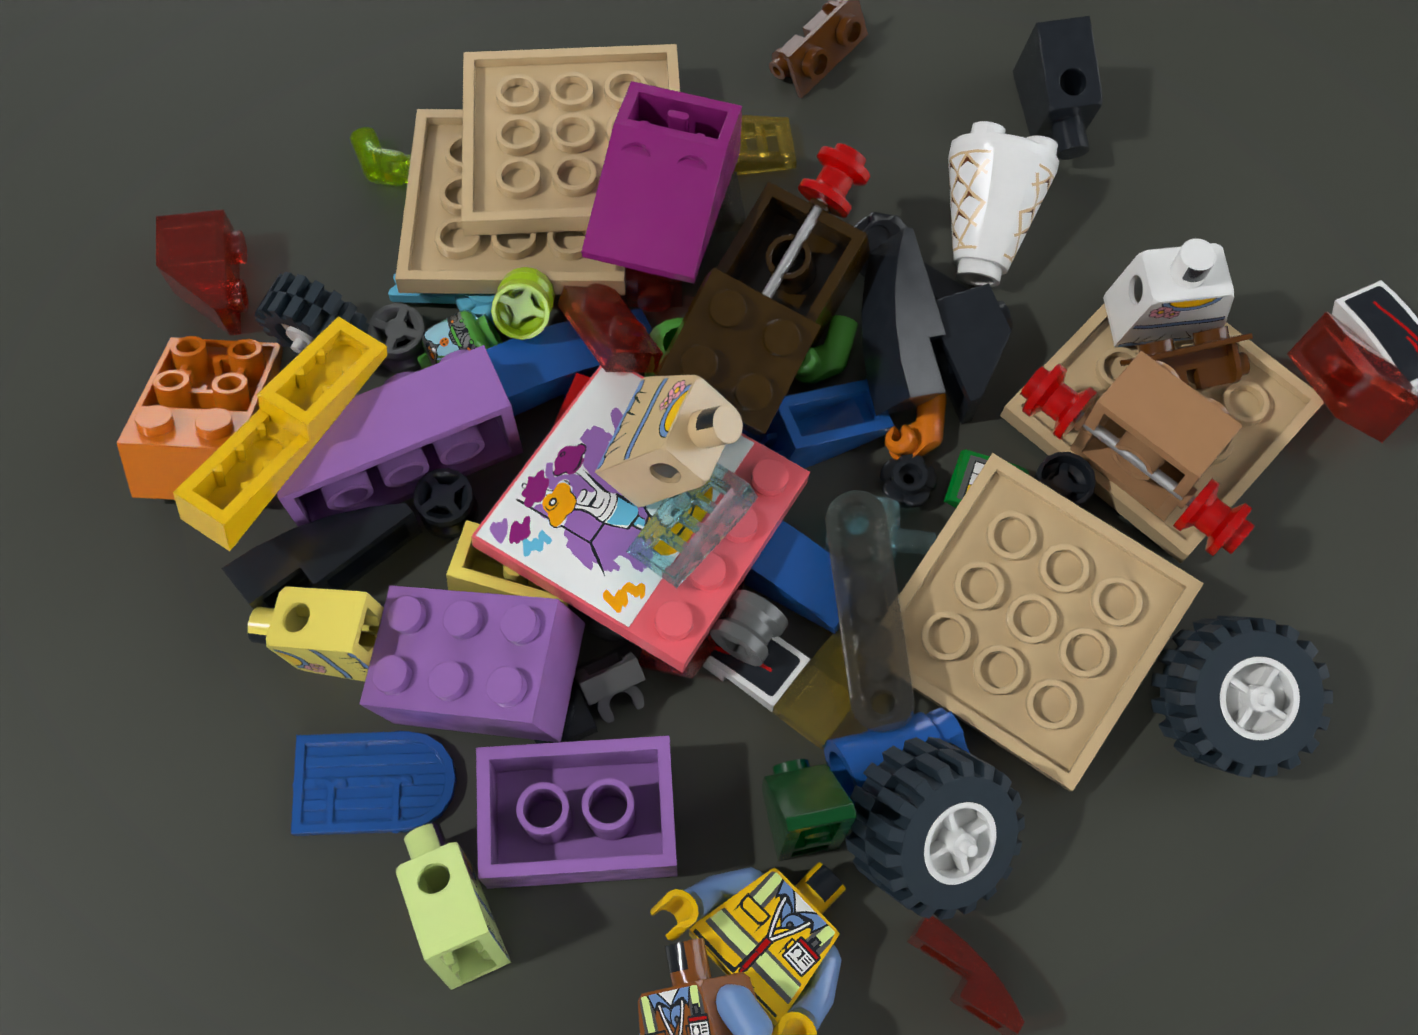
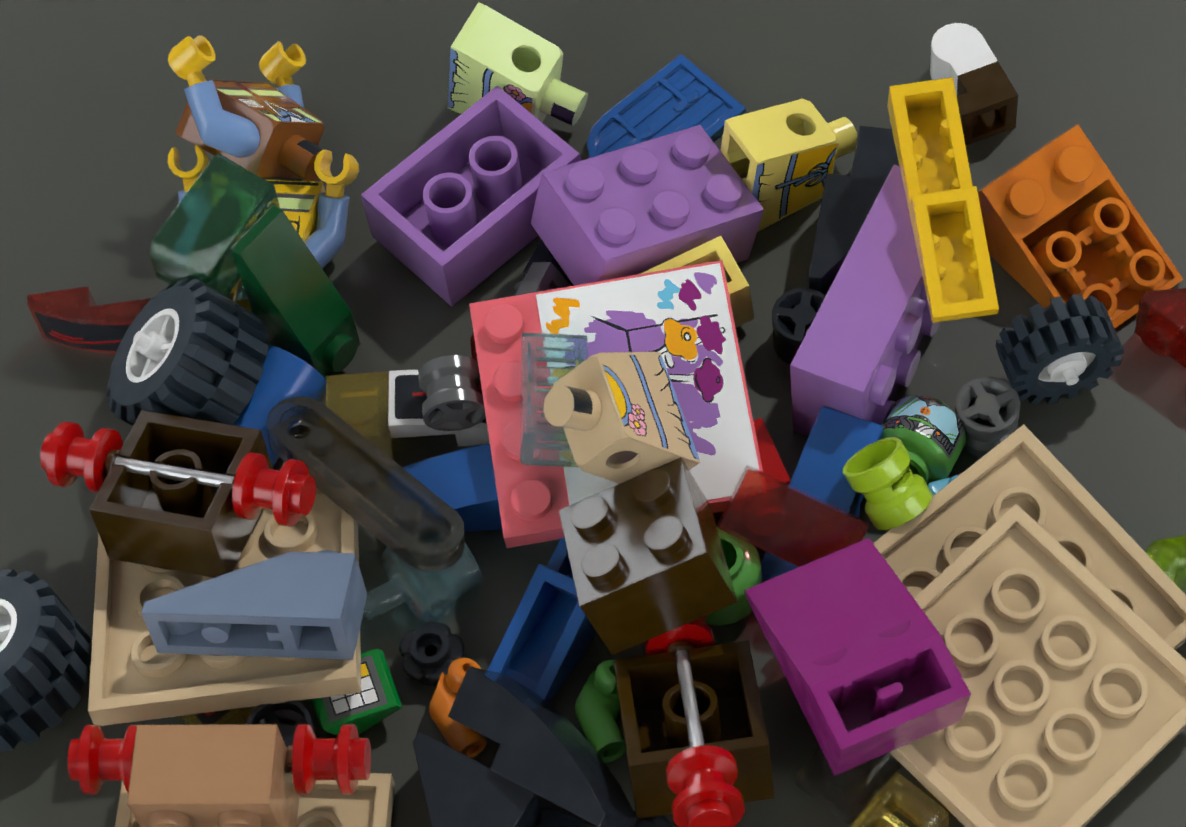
camera: 150 degrees right, 10 degrees down
(124, 594) = (981, 86): none -> leg
(825, 924) = (208, 223): none -> clear green piece
(1015, 532) = (269, 609): none -> sand blue slope
(1024, 694) = (178, 489): none -> dark brown brick

